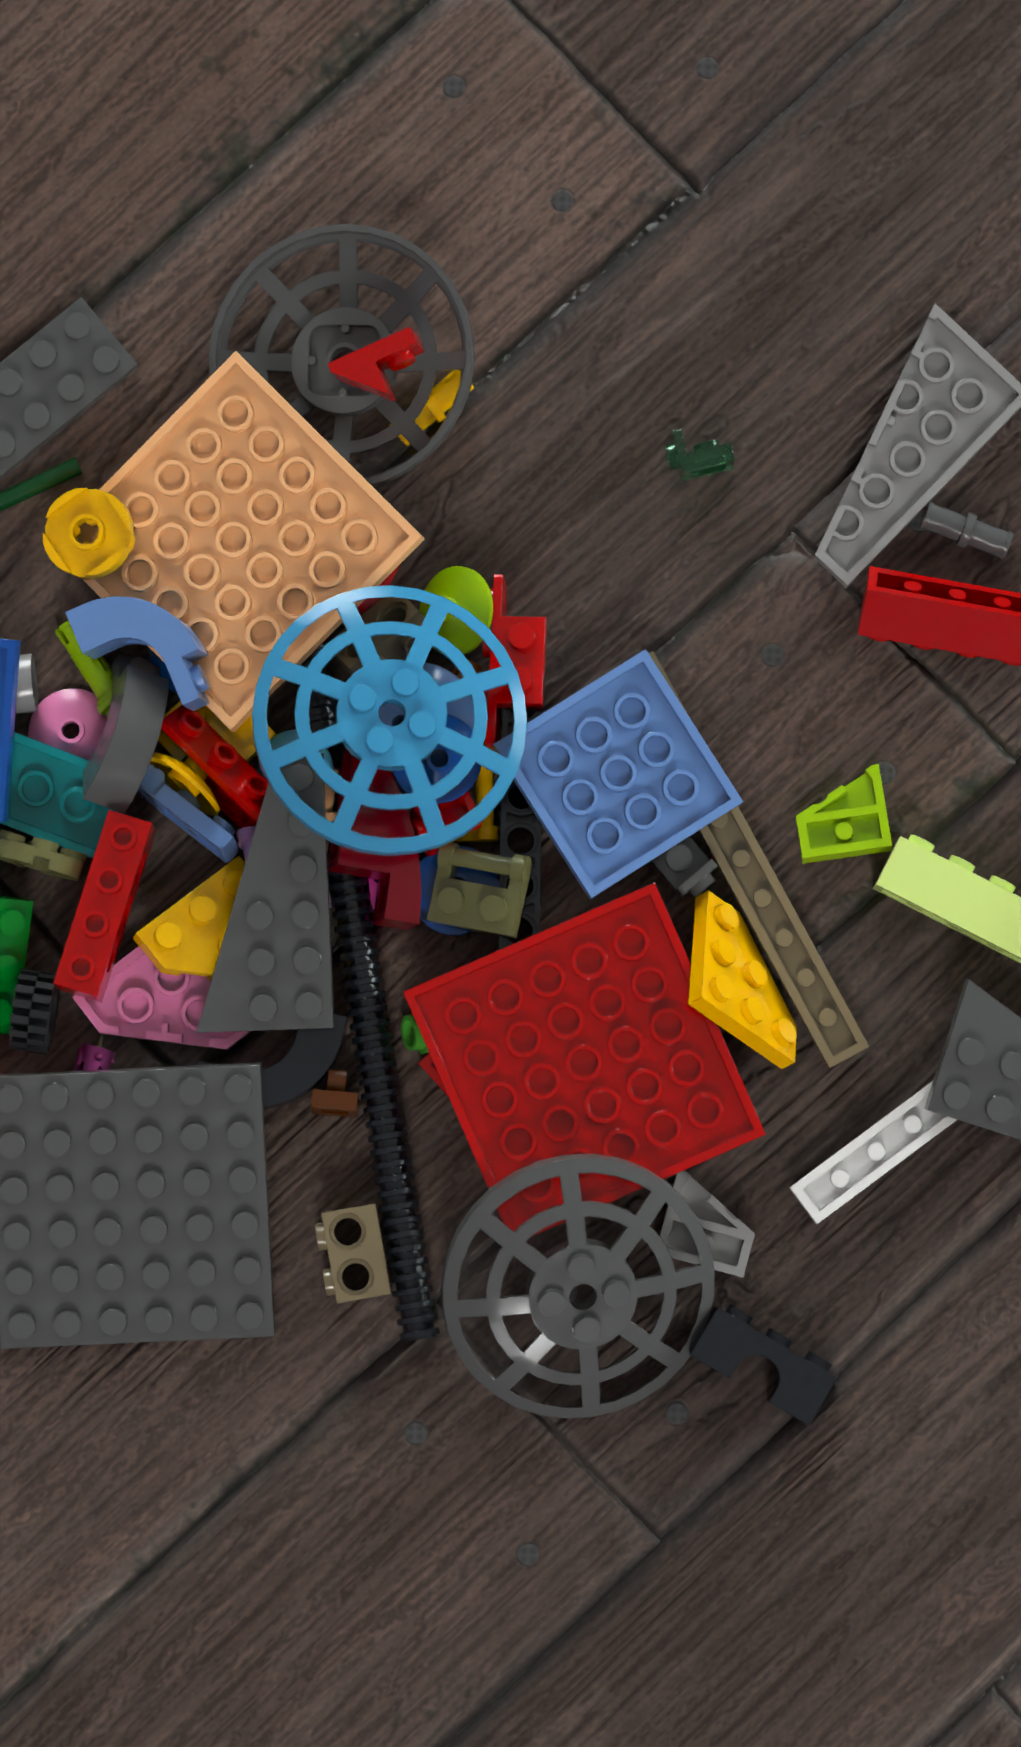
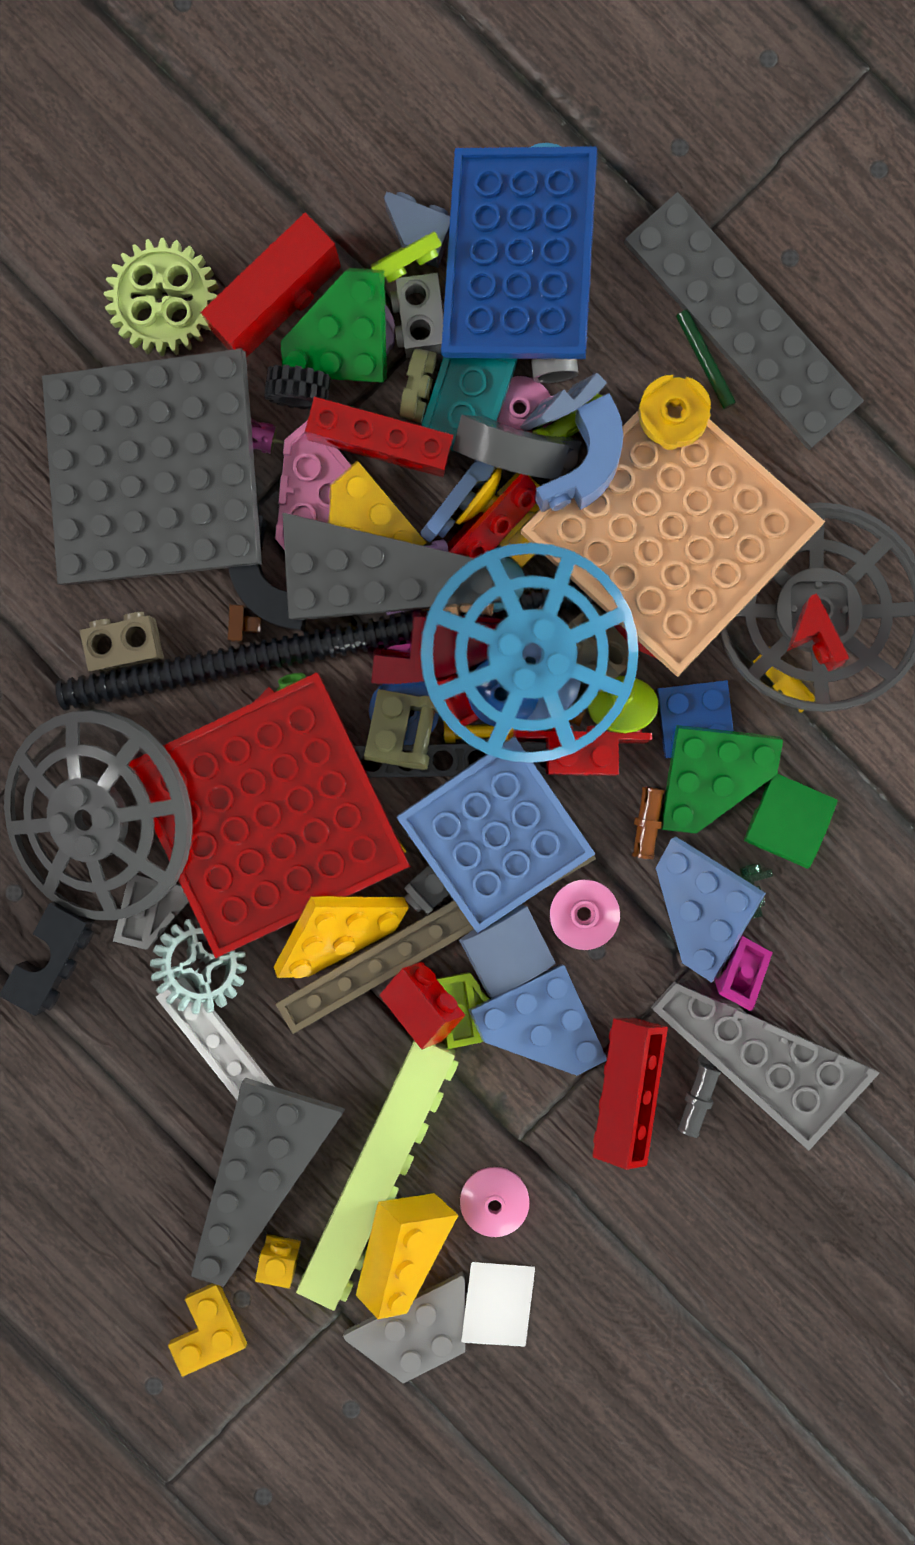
camera: 85 degrees right, 5 degrees up
(70, 662) = (564, 402): none -> sand blue slope
(478, 519) = (694, 706): none -> blue plate
(548, 499) = (713, 773): none -> green plate
(608, 584) = (648, 822): none -> dark orange pin
(611, 404) = (791, 820): none -> green slope
(717, 515) = (704, 906): none -> medium blue plate
(730, 645) = (590, 932): none -> bright pink dish
(769, 766) = (508, 952): none -> sand blue slope
(803, 467) = (744, 973): none -> dark pink slope
(813, 1159) = (202, 980): none -> light aqua gear
(833, 875) = (422, 1005): none -> red brick
(863, 726) = (542, 1023): none -> medium blue plate

